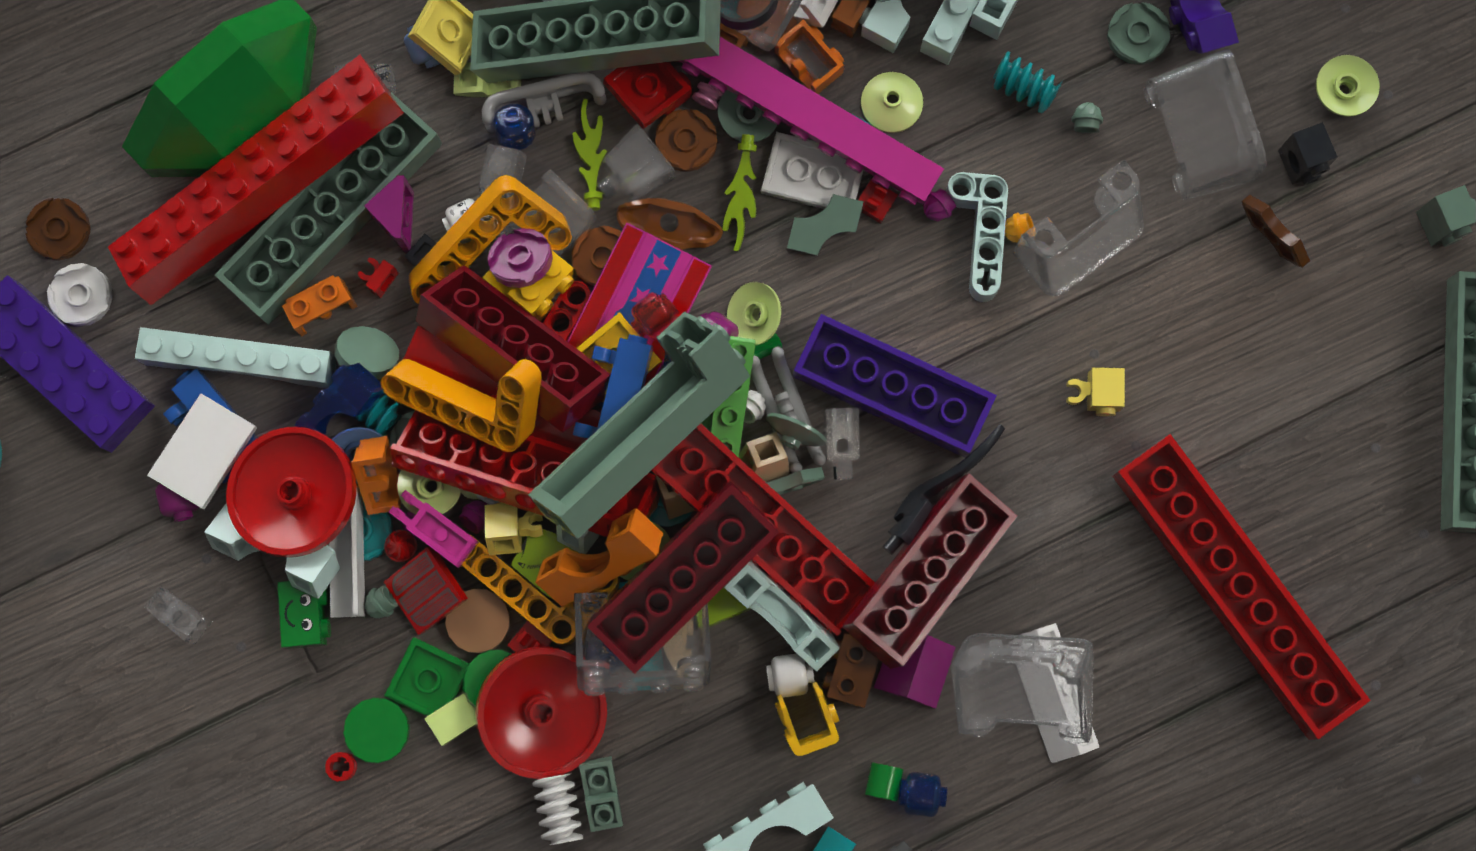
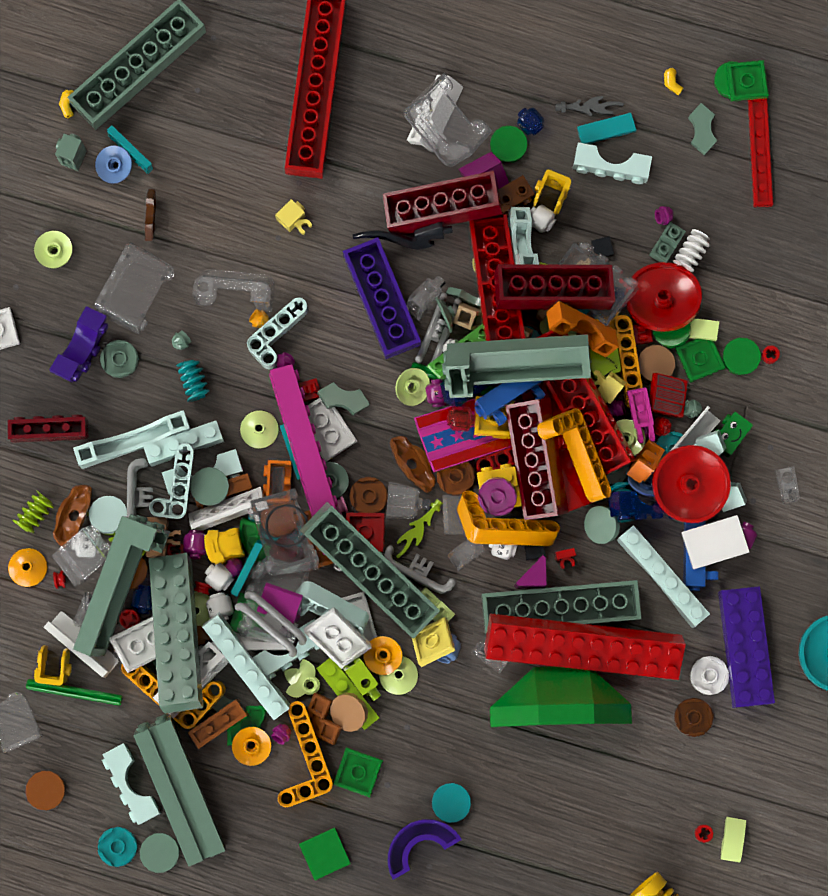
camera: 145 degrees left, 0 degrees up
(317, 302) = (603, 568): orange window -> none
(514, 126) = (442, 568): clear blue head -> none
(637, 826) = (664, 215): none -> magenta plate
(679, 710) = (603, 246): none -> black tile
(744, 196) = (367, 444): lime piece -> none
(884, 781) = (541, 141): green brick -> none
(922, 738) = (508, 144): none -> green tile
(1308, 154) = (103, 232): black brick -> none
(1381, 290) = (135, 155): none -> teal tile
(1389, 245) = (106, 160): none -> medium blue dish

